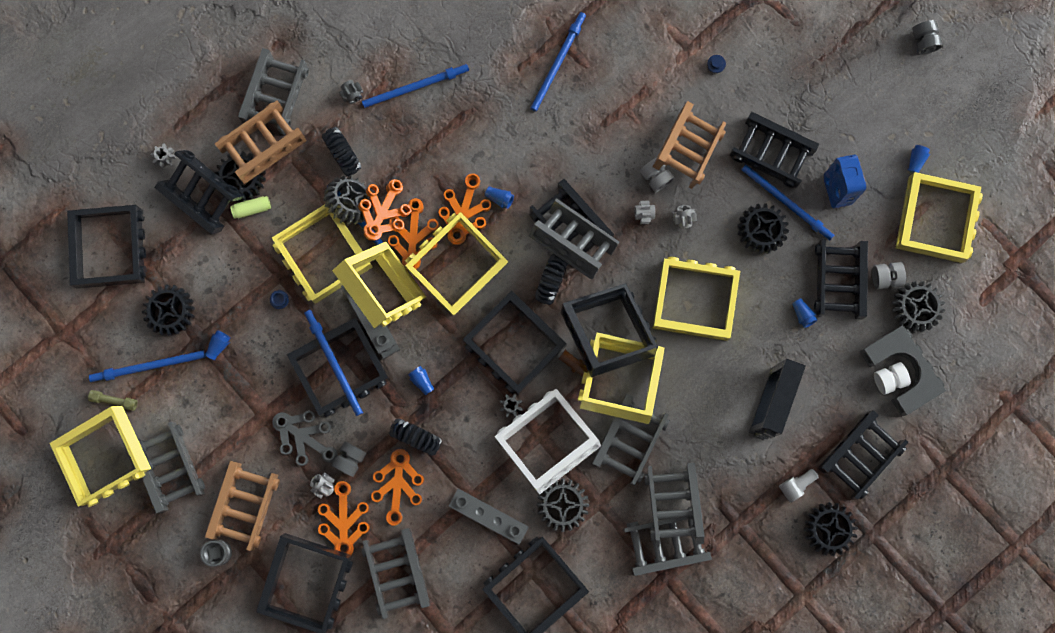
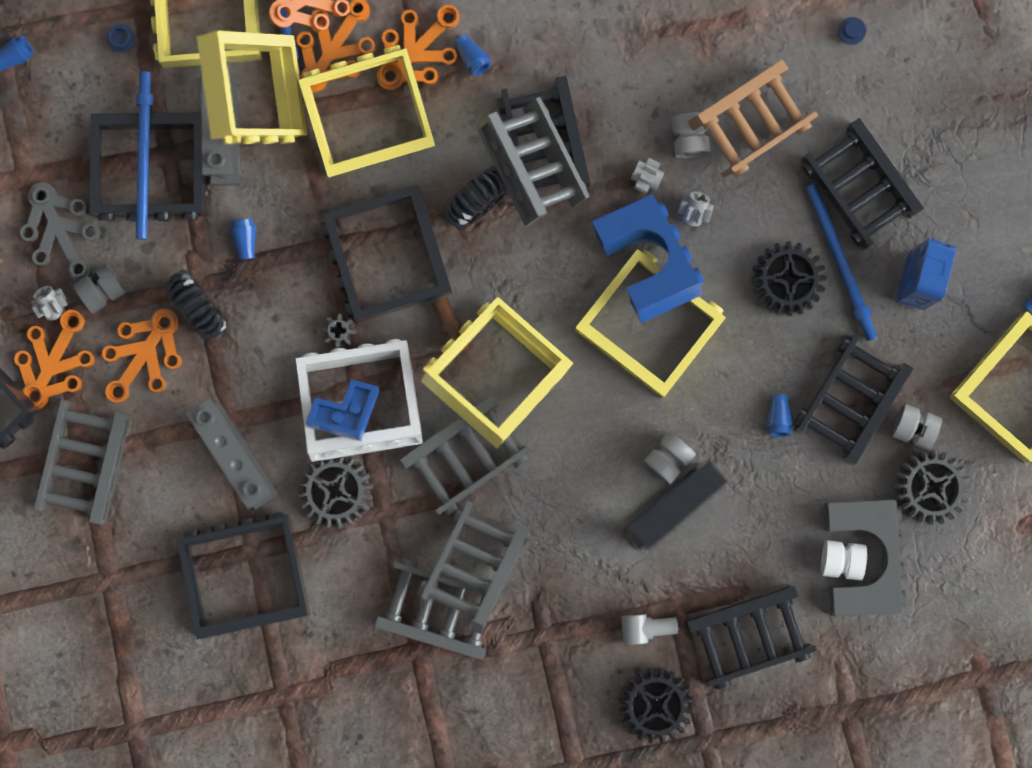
camera: 30 degrees right, 5 degrees up
(549, 454) = (346, 418): none -> blue plate
(634, 311) = (521, 255): black window -> none
(660, 240) = (647, 222): none -> blue arch
(753, 373) = (669, 457): none -> light grey wheel

